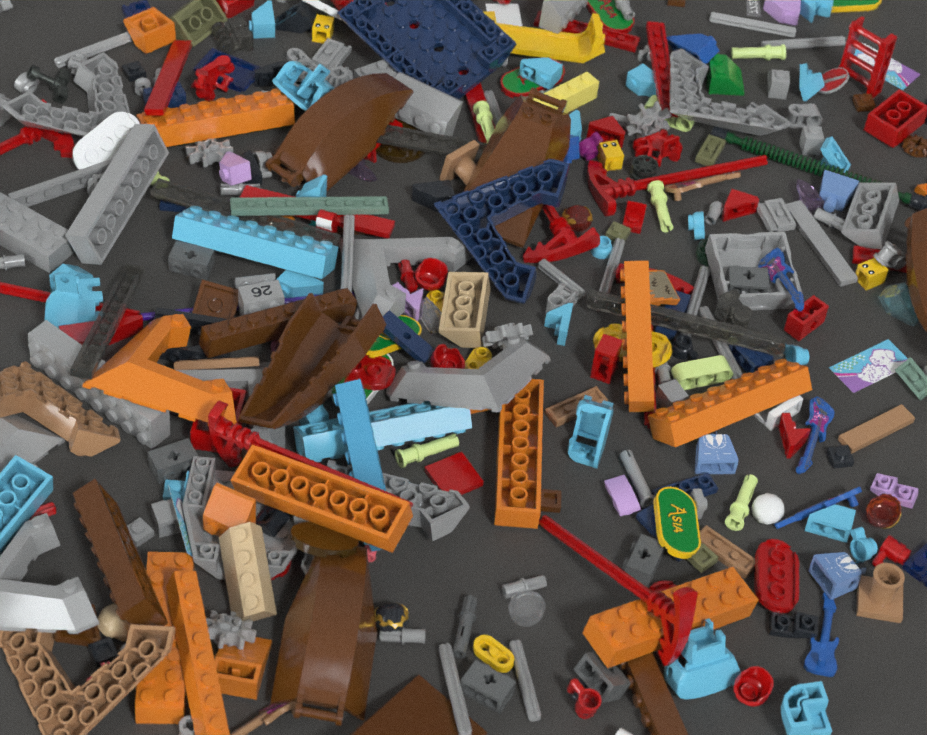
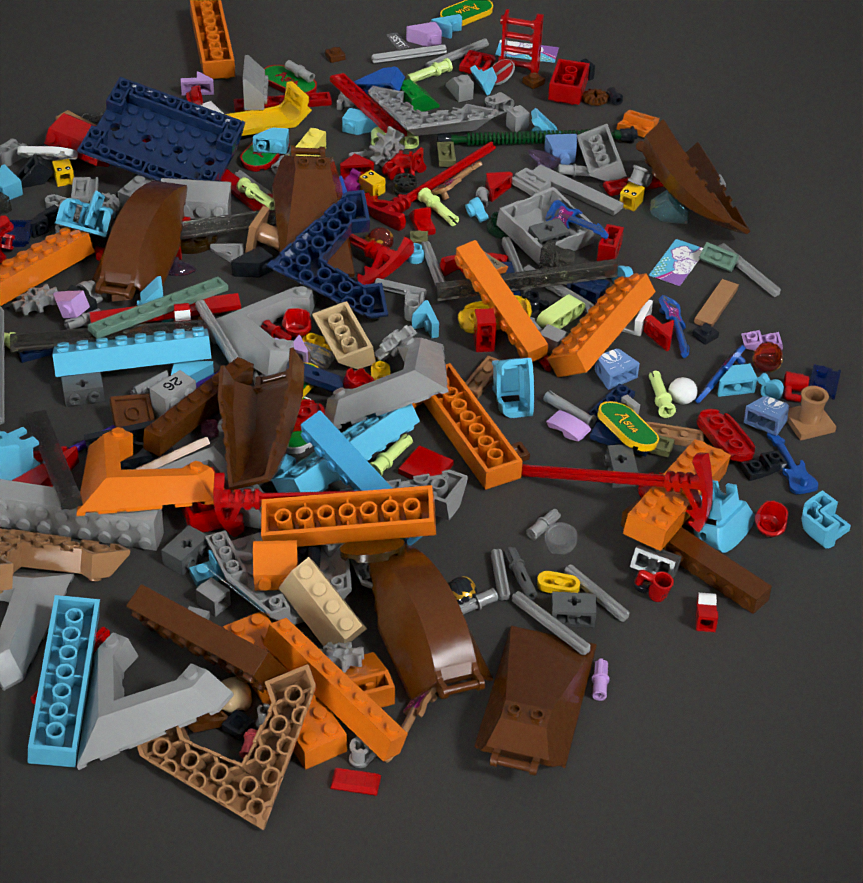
camera: 25 degrees left, 5 degrees down
(424, 172) = (228, 251): none -> light grey tile
(445, 618) = (500, 574): none -> light grey axle
(814, 56) = (475, 58): none -> red plate

